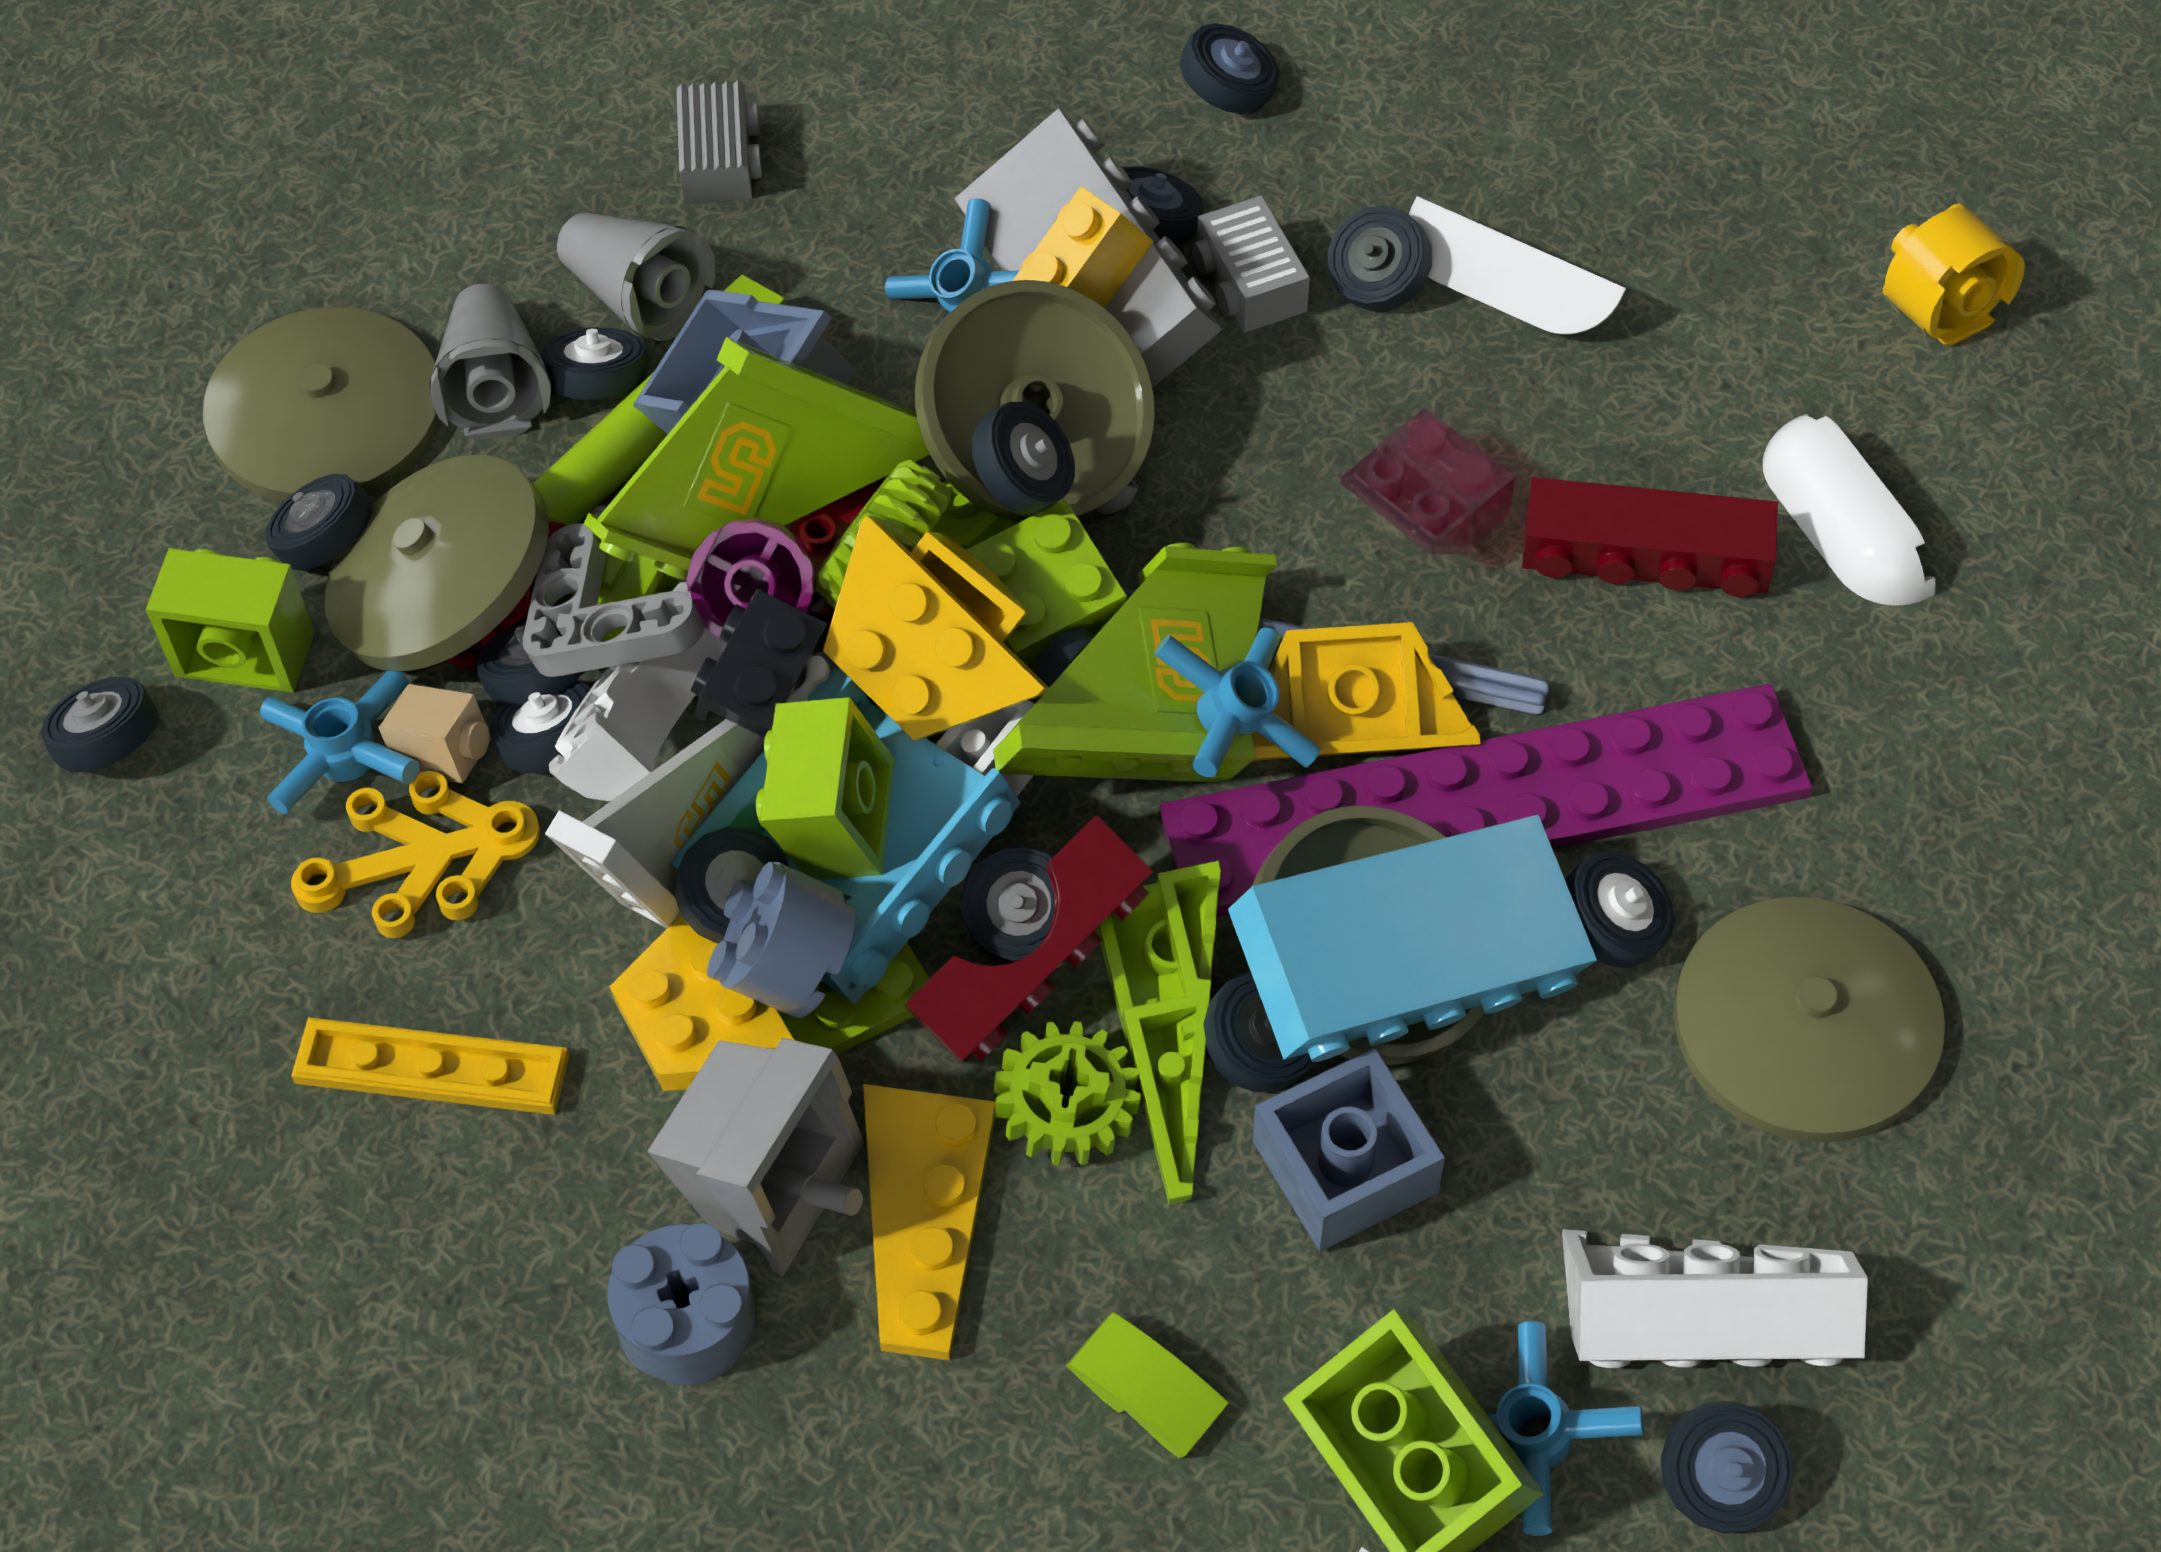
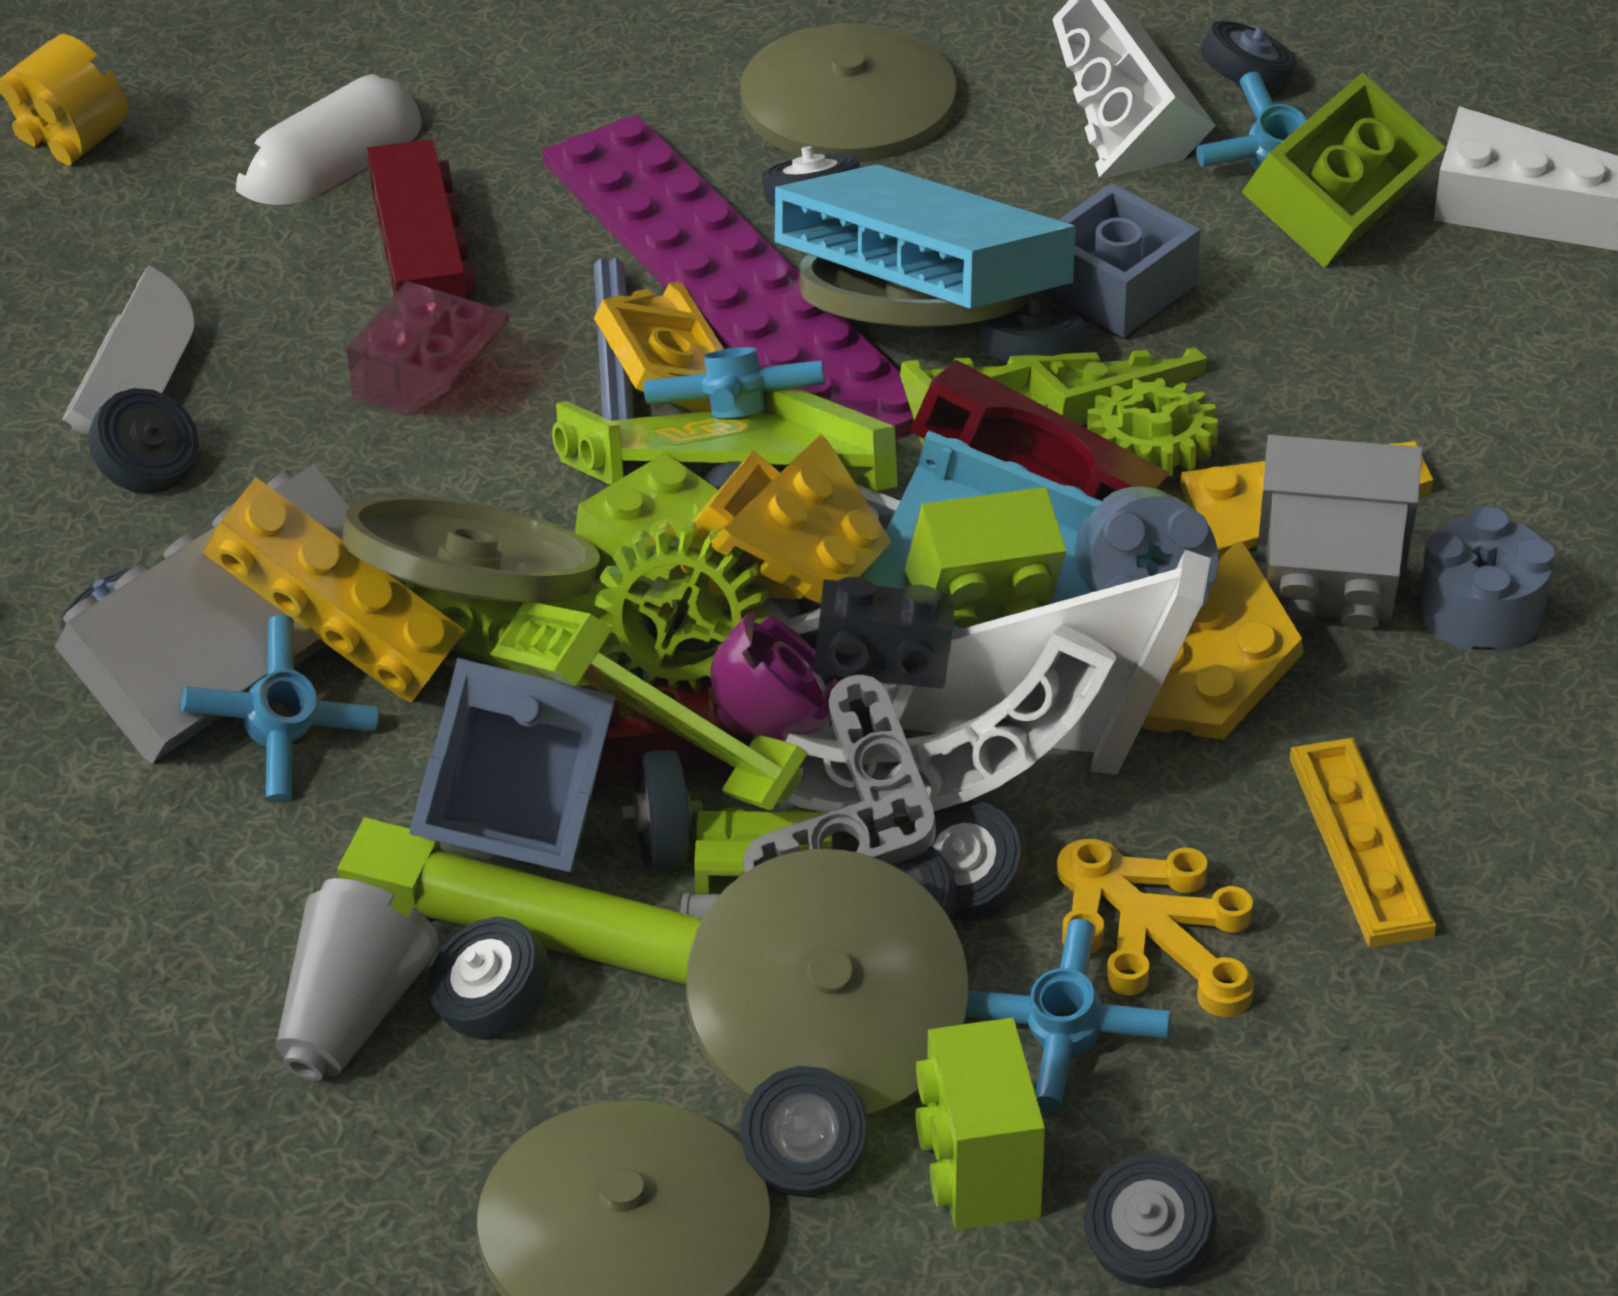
camera: 110 degrees left, 15 degrees down
(437, 730) = (1022, 928): tan brick -> none
(488, 368) = (519, 1058): light grey cone -> none
(715, 142) = (121, 985): light grey brick -> none
(1023, 457) = (561, 512): black wheel -> none
(1148, 1383) = (1367, 336): lime slope -> none
(1251, 264) = (157, 517): light grey brick -> none

